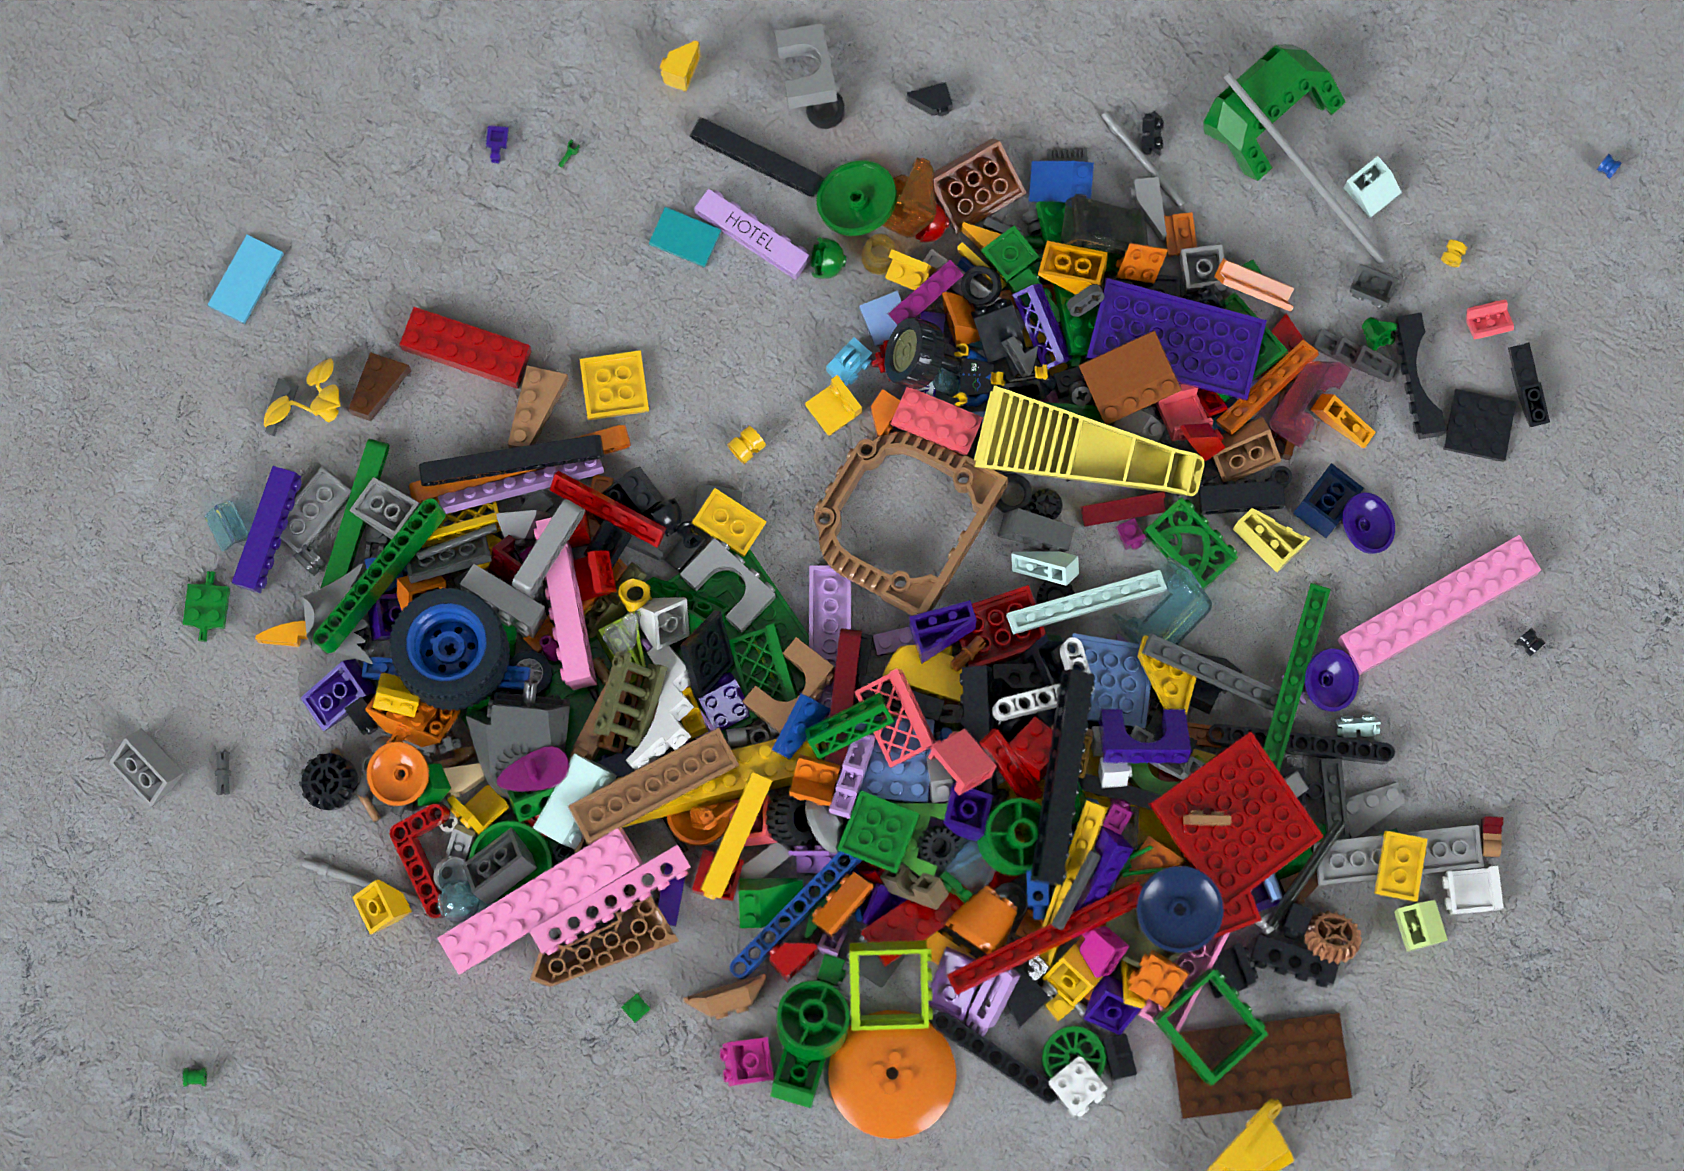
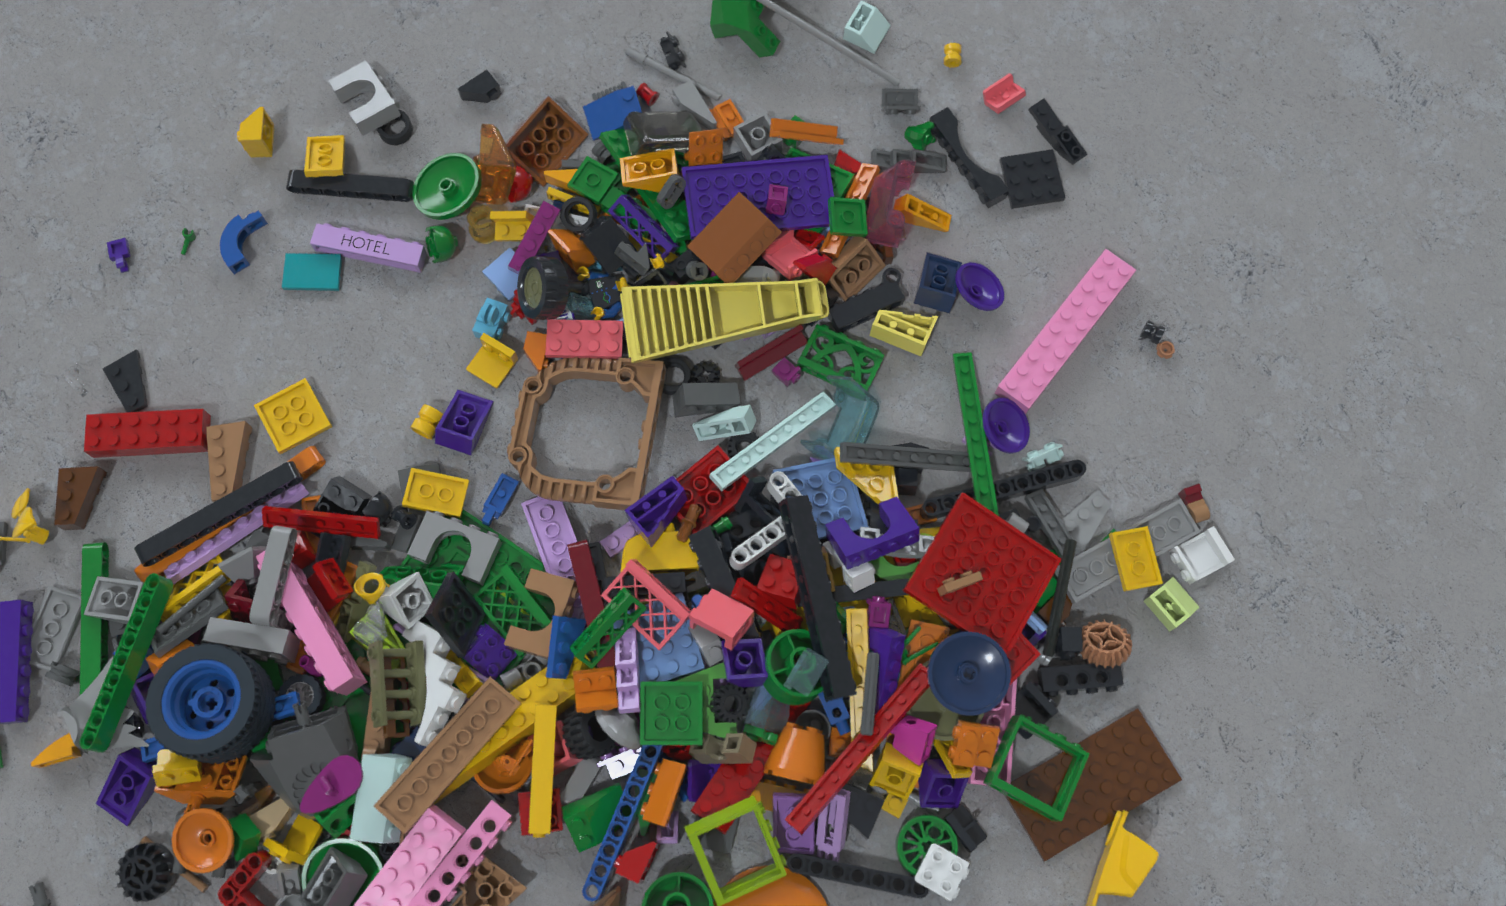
camera: 25 degrees left, 5 degrees down
(360, 717) = (153, 800): black slope -> none
(461, 283) = (127, 381): none -> black wing
(618, 169) = (234, 236): none -> blue arch
(671, 898) = (506, 850): dark purple tile -> none
(742, 116) = (324, 156): none -> yellow plate
(782, 458) = (463, 422): none -> dark purple slope
(789, 551) = (499, 498): none -> blue hinge
(831, 970) = (678, 857): green brick -> none
(1000, 668) = (723, 525): none -> green pin
(1022, 844) = (806, 672): none -> clear light blue panel
(1105, 165) = (647, 94): none -> red bush
(1192, 351) = (776, 199): none -> magenta bracket
(1259, 397) = (847, 217): none -> green plate
(1542, 666) = (1165, 345): none -> nougat plate

